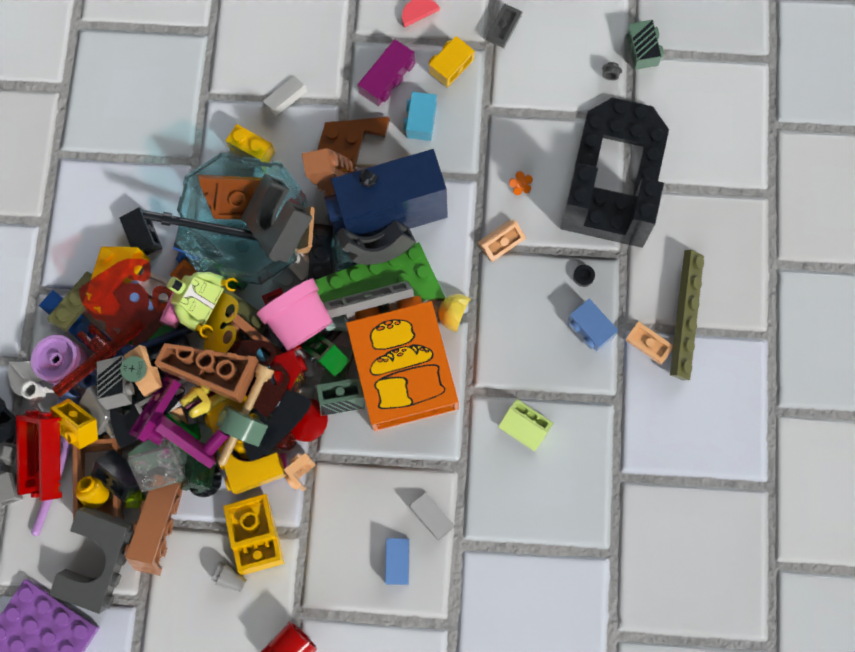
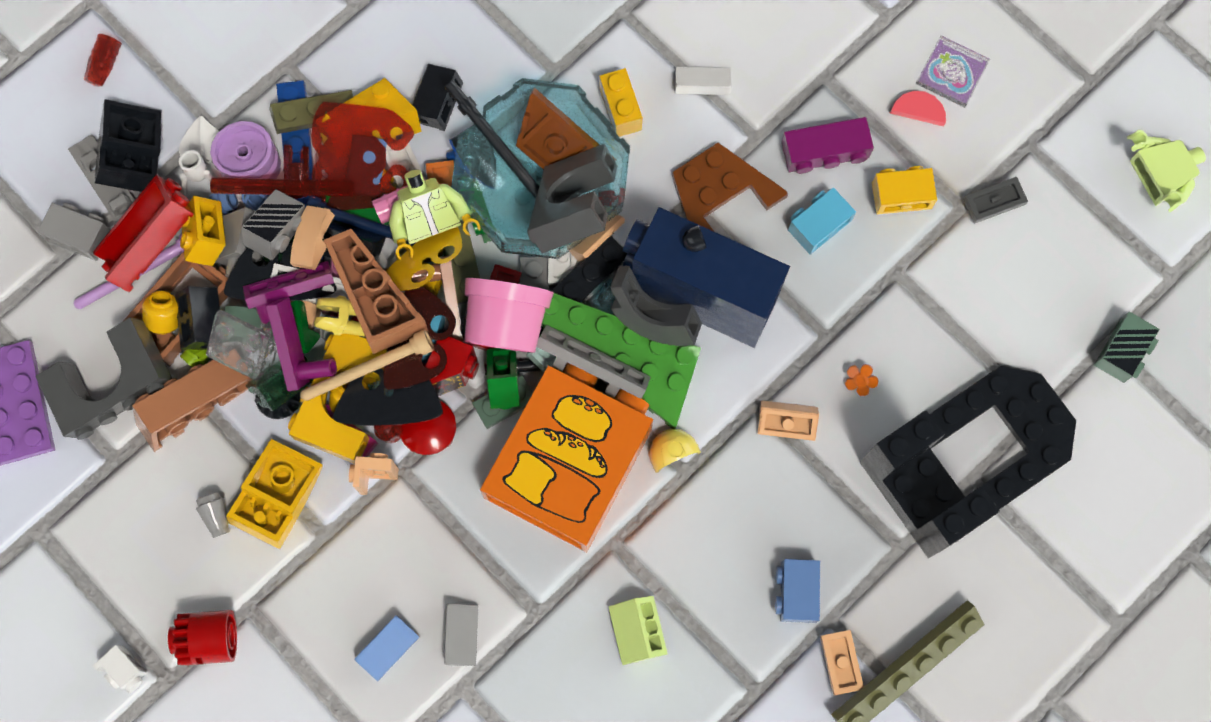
camera: 35 degrees right, 0 degrees up
(133, 369) = (301, 228): sand green piece -> none
(241, 425) = (352, 376): sand green brick -> none
(324, 165) = (669, 189): nougat wedge -> none
(340, 396) = (477, 433): sand green brick -> none
(584, 275) = (839, 532): black tile -> none
(611, 71) = (1066, 345): dark grey plate -> none

